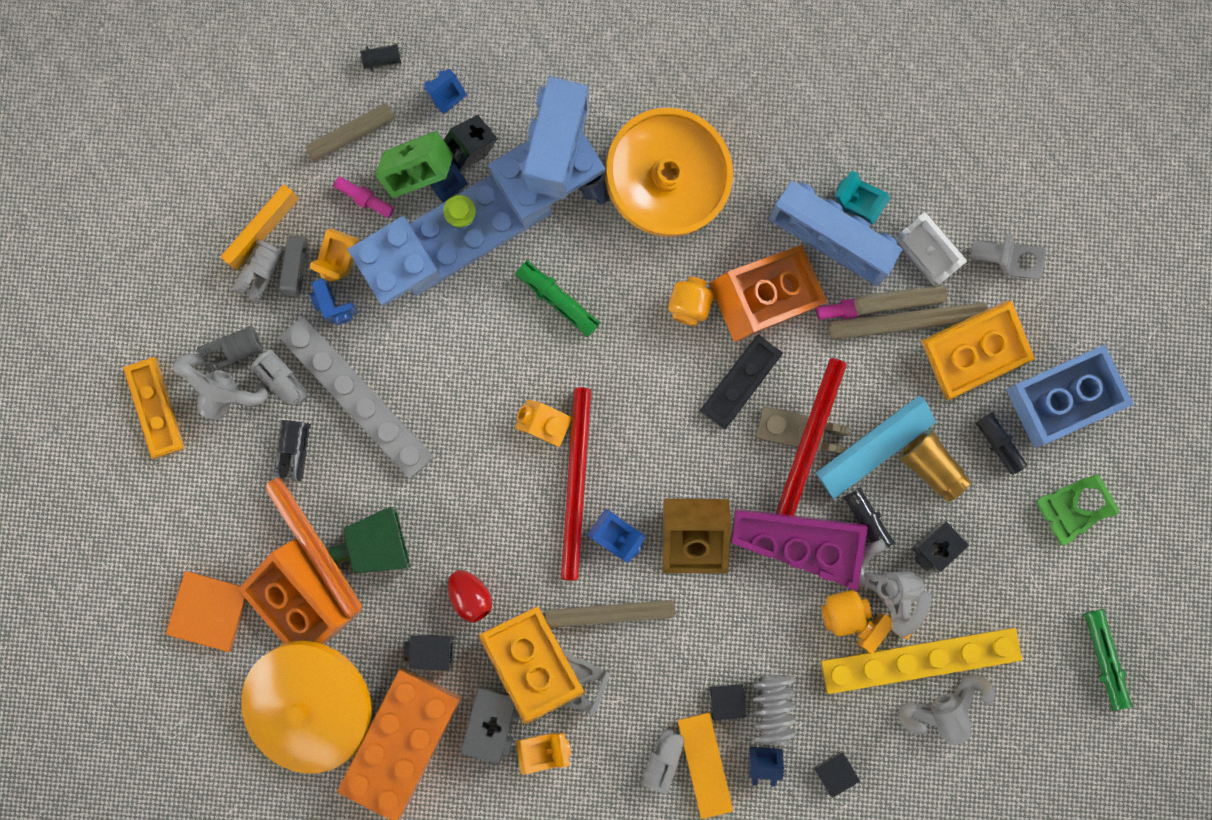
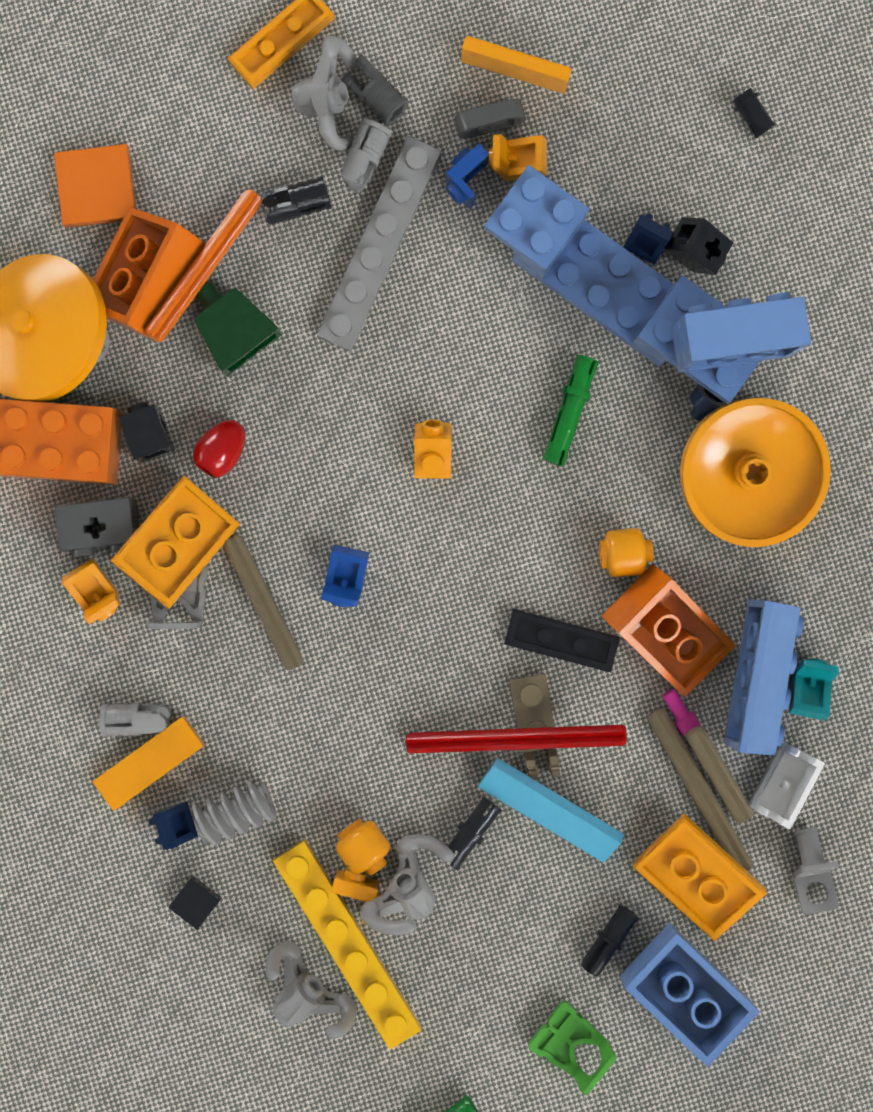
camera: 65 degrees right, 5 degrees up
(262, 264) = (478, 85): light grey hinge -> none
(350, 132) = (658, 115): dark tan axle -> none
(364, 197) = (594, 160): dark pink bar -> none
(414, 164) = (650, 197): bright green brick -> none
(445, 90) = (745, 197): blue tile -> none
(459, 211) = (620, 267): lime plate -> none
(576, 484) = (383, 511): red axle -> none
(696, 535) = (380, 658): pearl gold slope -> none
(727, 702) = (222, 760): black tile -> none
(812, 544) = (420, 788): magenta wing -> none
(935, 466) = (556, 880): pearl gold plant -> none
(952, 547) = (476, 931): black brick -> none

